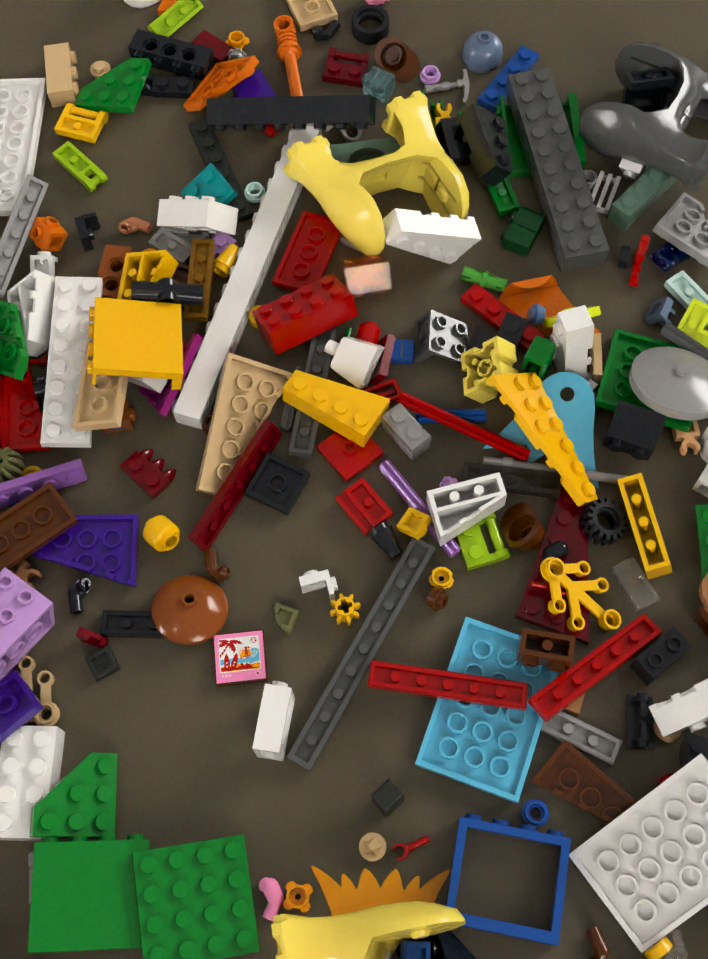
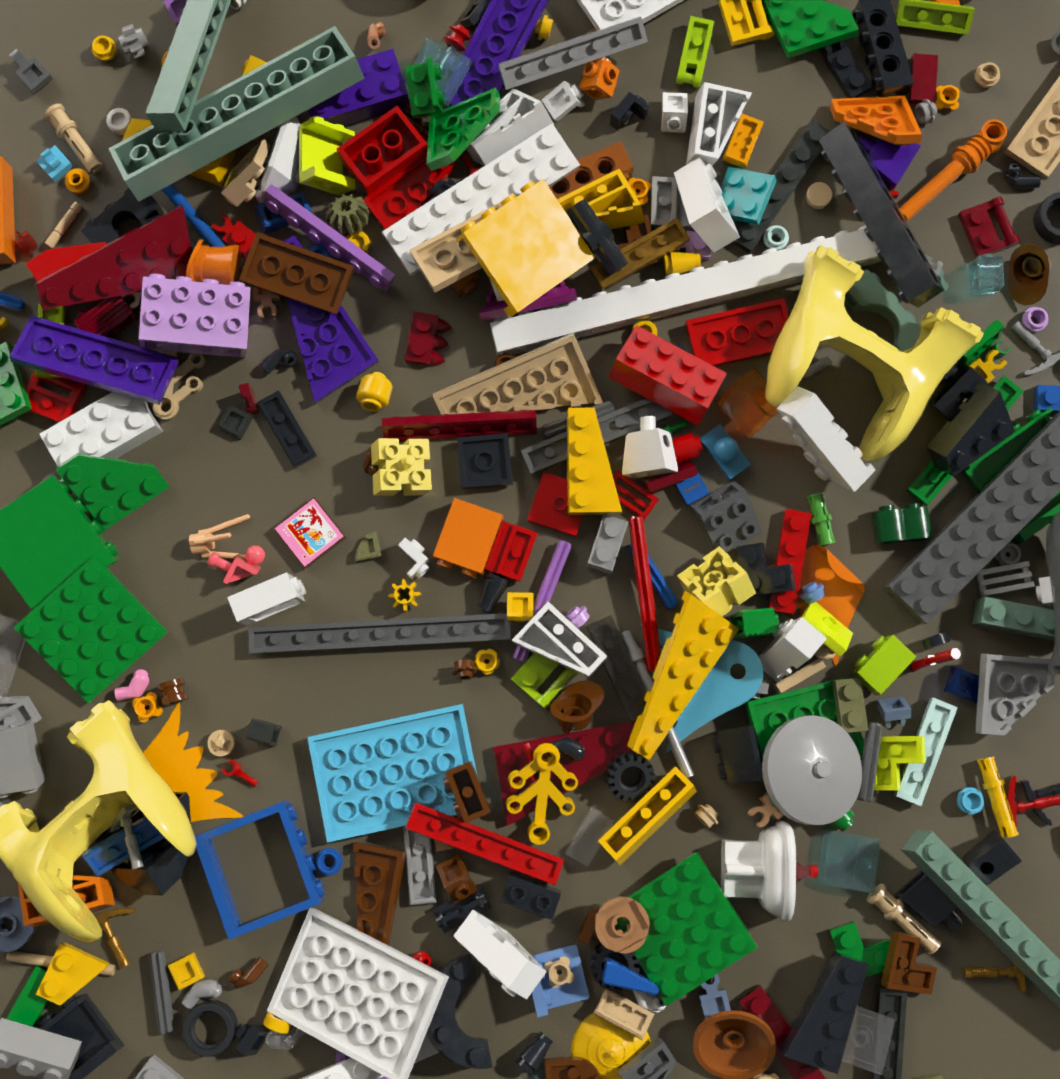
camera: 55 degrees right, 15 degrees up
(113, 202) = (674, 112): none -> white bracket
(134, 224) = (664, 148): nougat arm -> none
(139, 179) = (713, 120): none -> white wedge
(168, 173) = (743, 141): none -> light orange plate
(185, 751) = (204, 541): none -> light nougat plant
(193, 621) = (320, 479): dark orange dish -> none
(229, 734) = (240, 567): none -> coral piece
(238, 546) = (401, 467): none -> light yellow brick
(240, 11) = (987, 75): none -> tan plate
(245, 151) = (818, 195): none -> tan tile
(299, 861) = (173, 691): none -> reddish brown wheel
(331, 532) = (467, 538): none -> orange brick
(390, 313) = (724, 452): none -> dark azure tile
(448, 685) = (389, 725): red tile -> none
(611, 709) = (456, 878): none -> reddish brown bracket
(621, 298) = (883, 664): none -> lime brick
(638, 334) = (850, 704): none -> olive plate
(667, 486) = (706, 815): none -> tan plate

